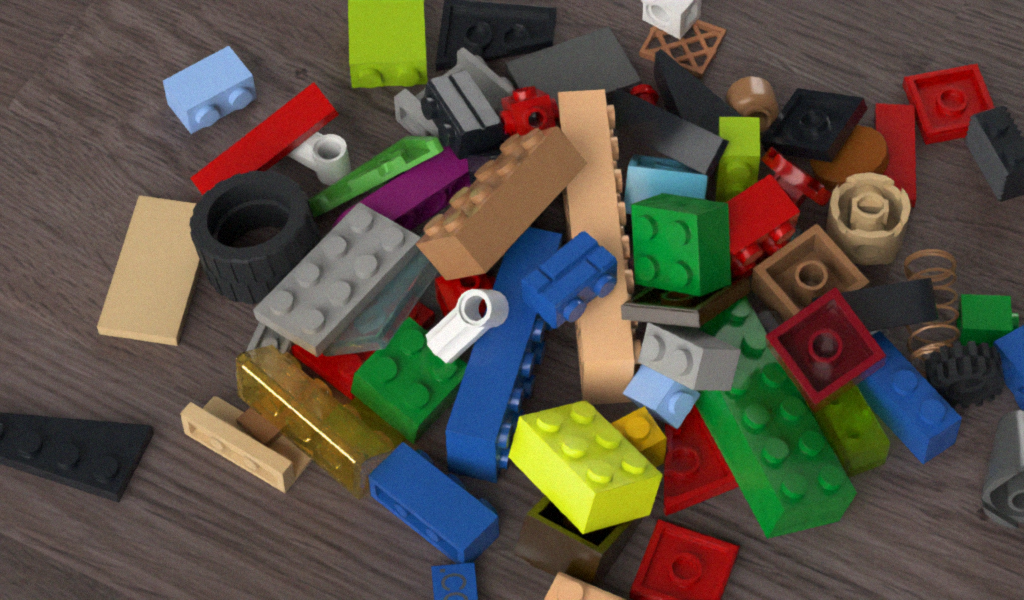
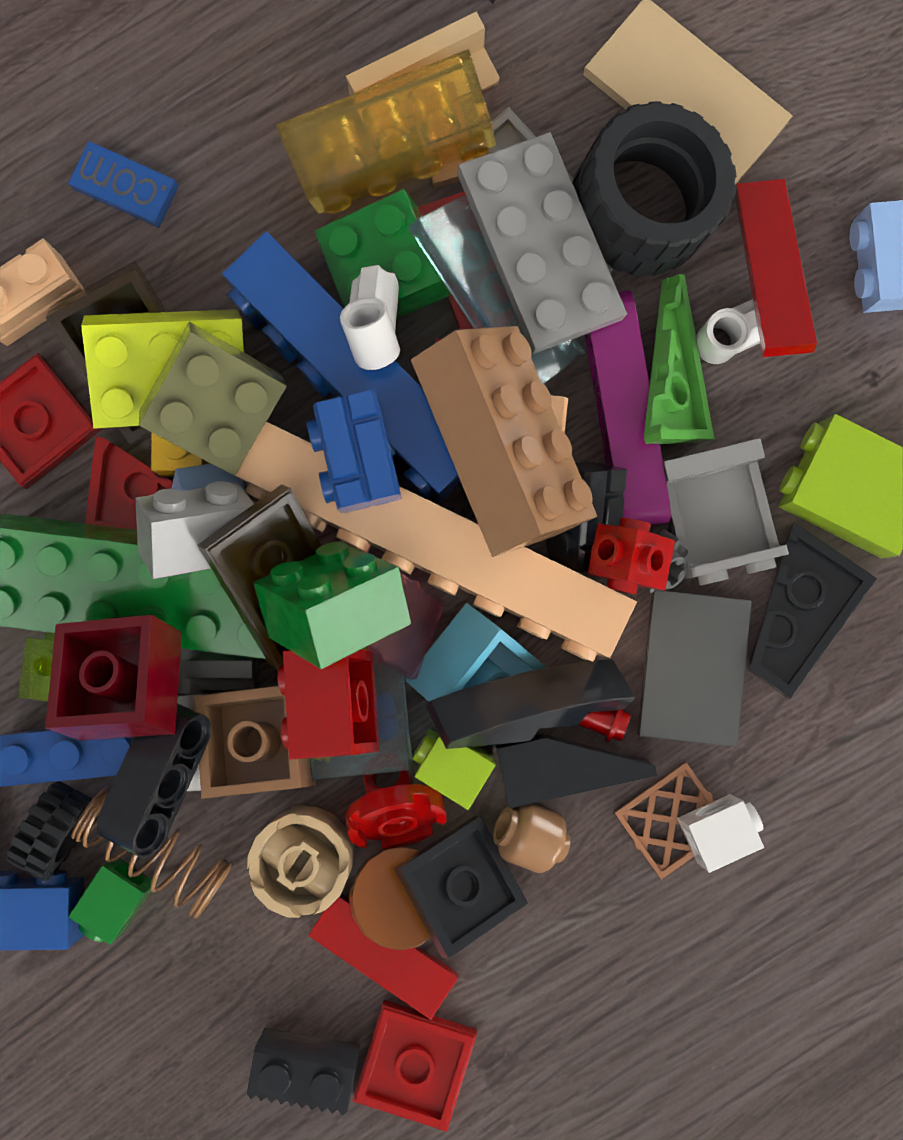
camera: 120 degrees right, 30 degrees up
(434, 504) = (233, 214): blue brick -> none
(461, 114) = (681, 488): black brick -> none
(591, 395) = (211, 399): none -> olive brick

